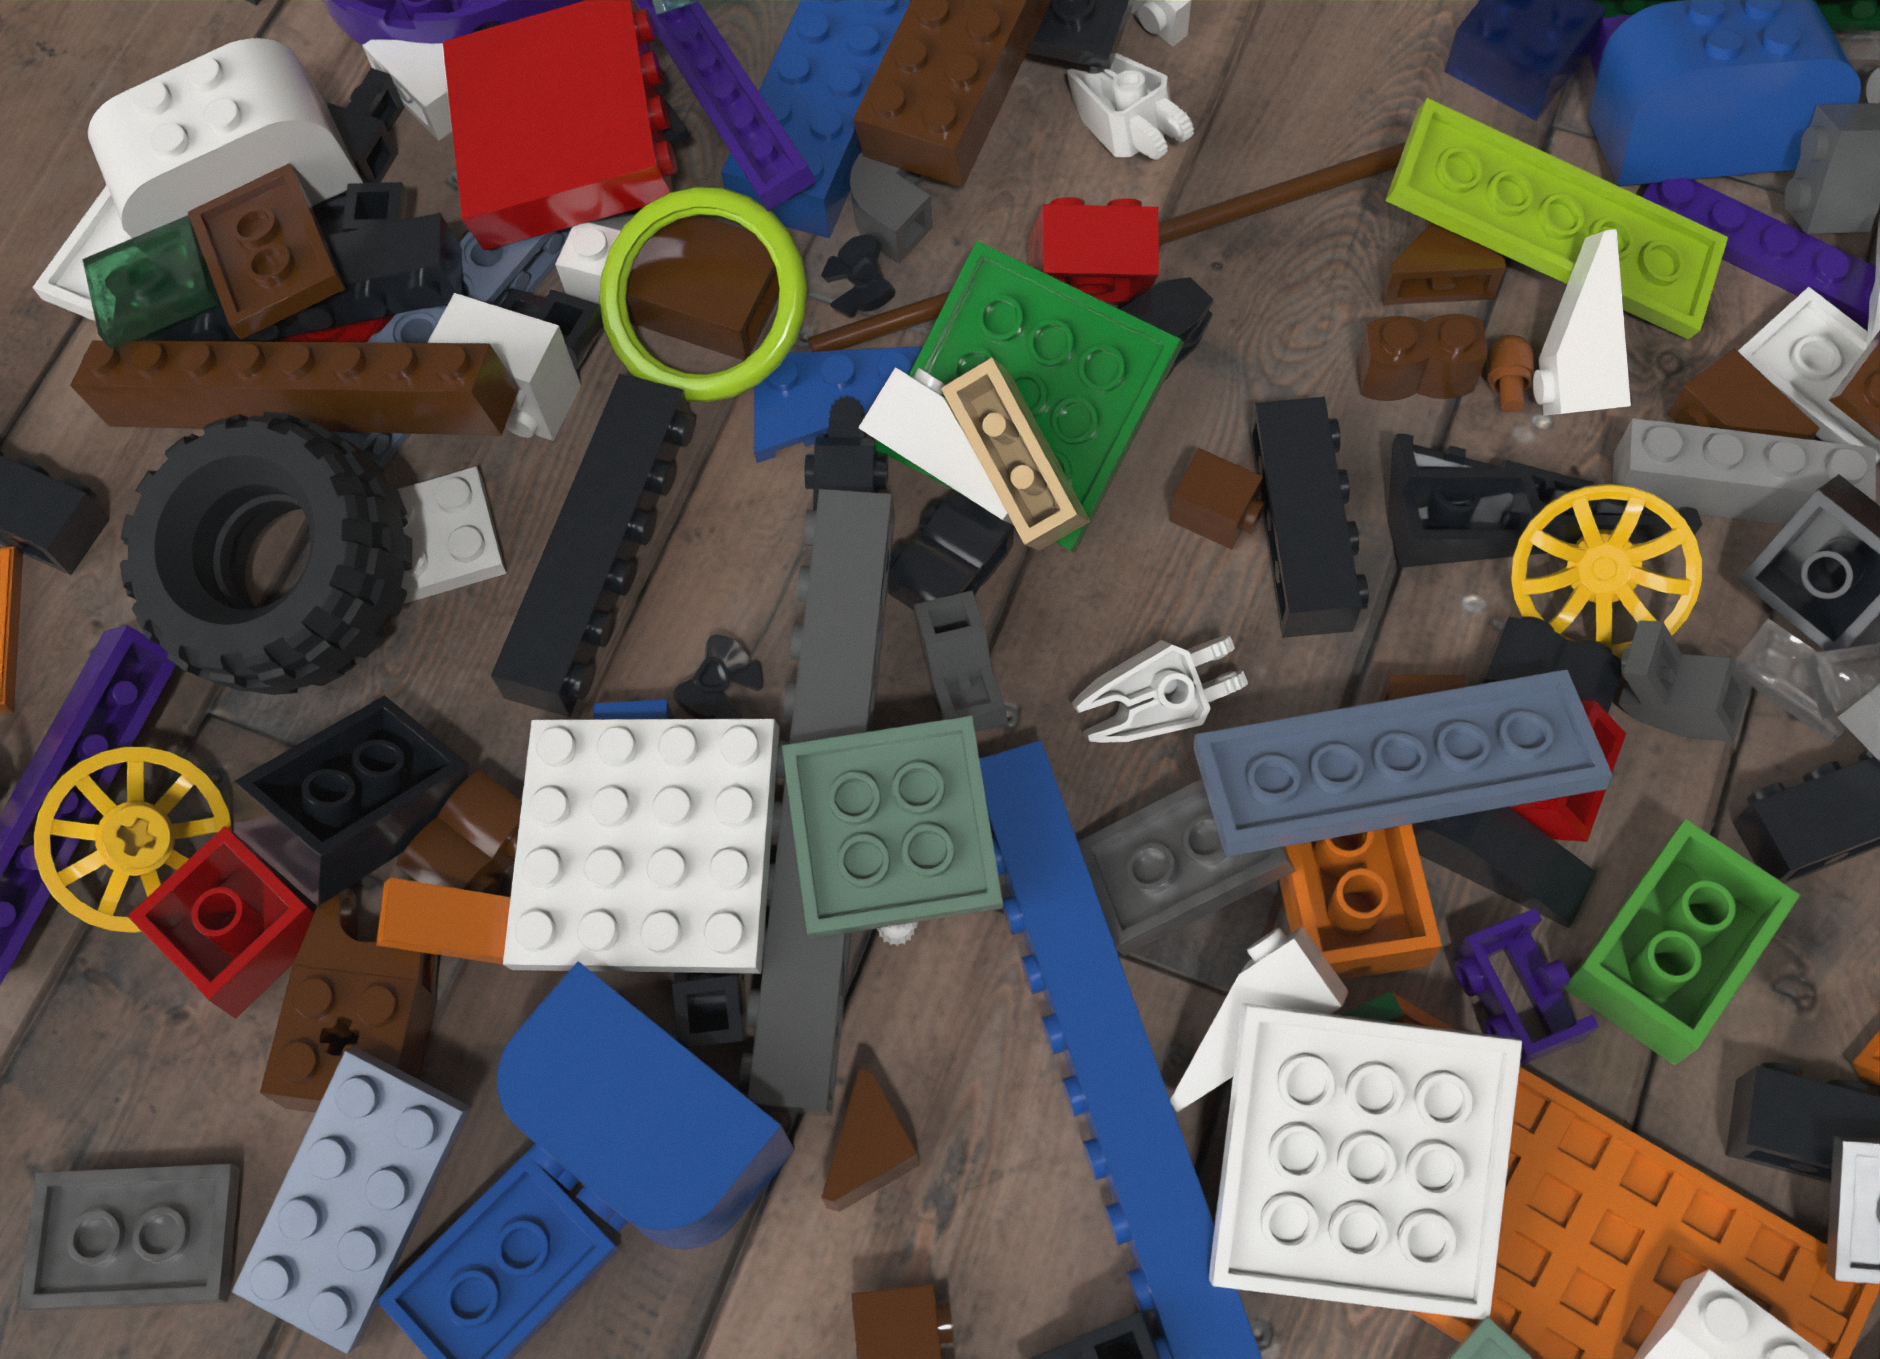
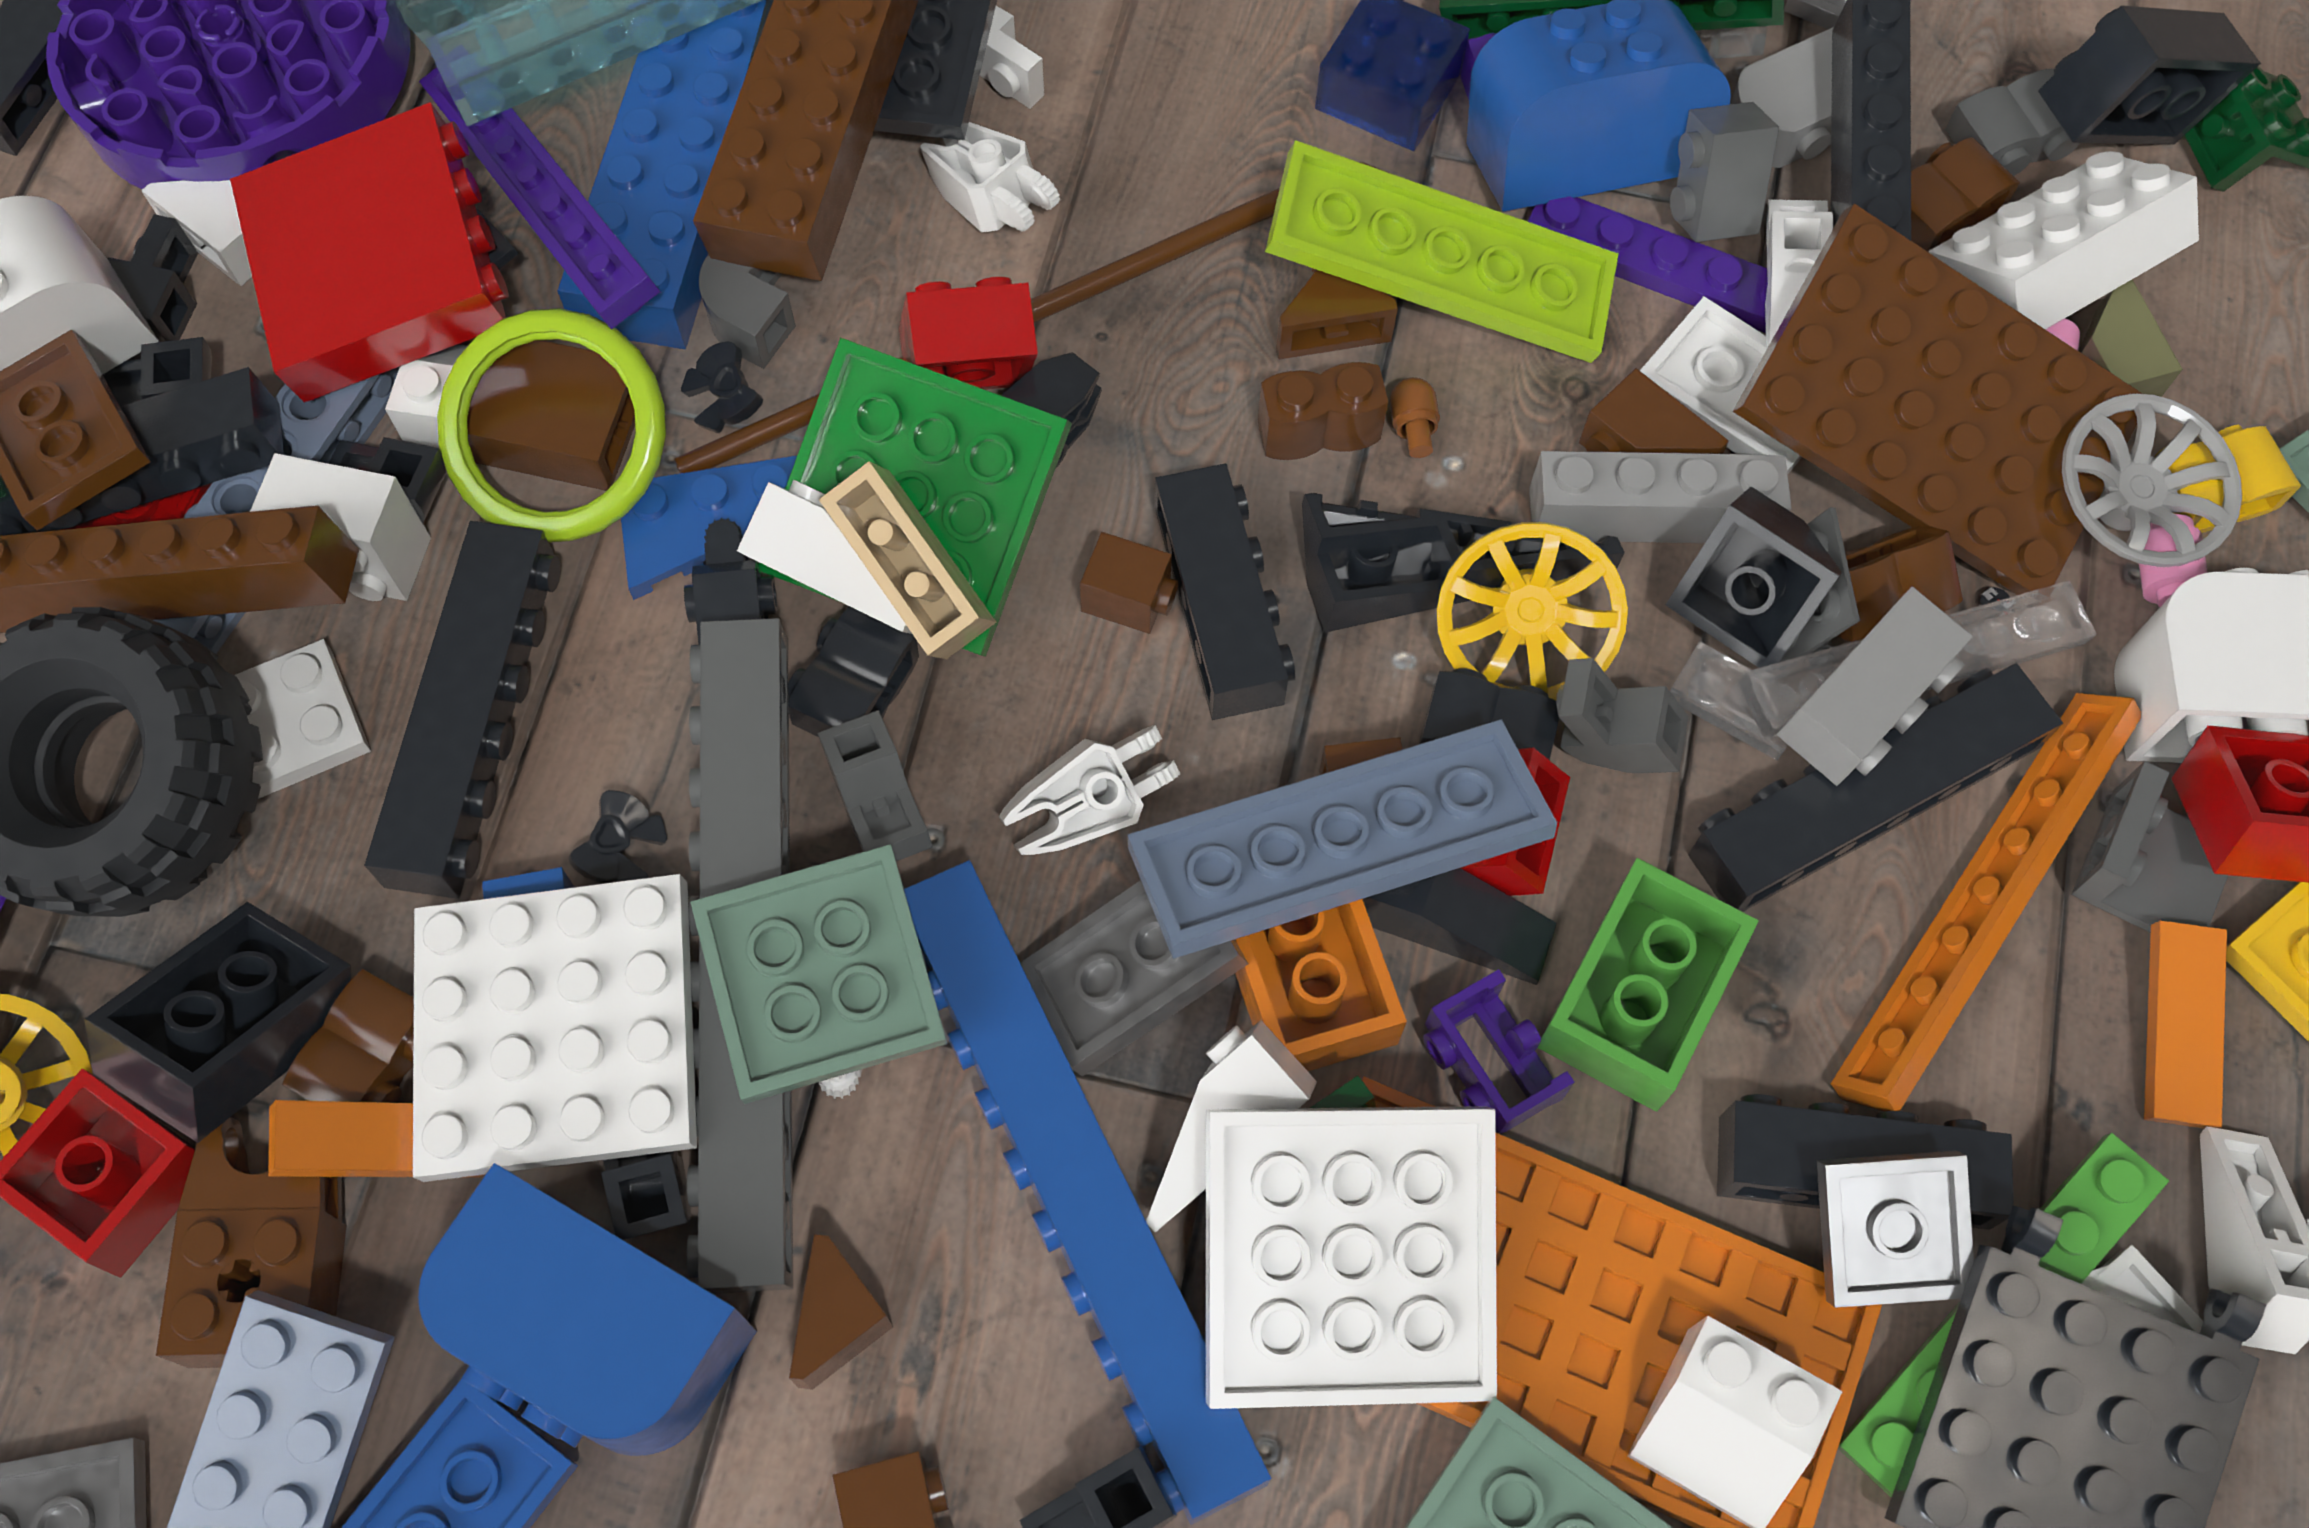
camera: 15 degrees left, 0 degrees up
(1586, 346) = (1487, 383): white slope -> none

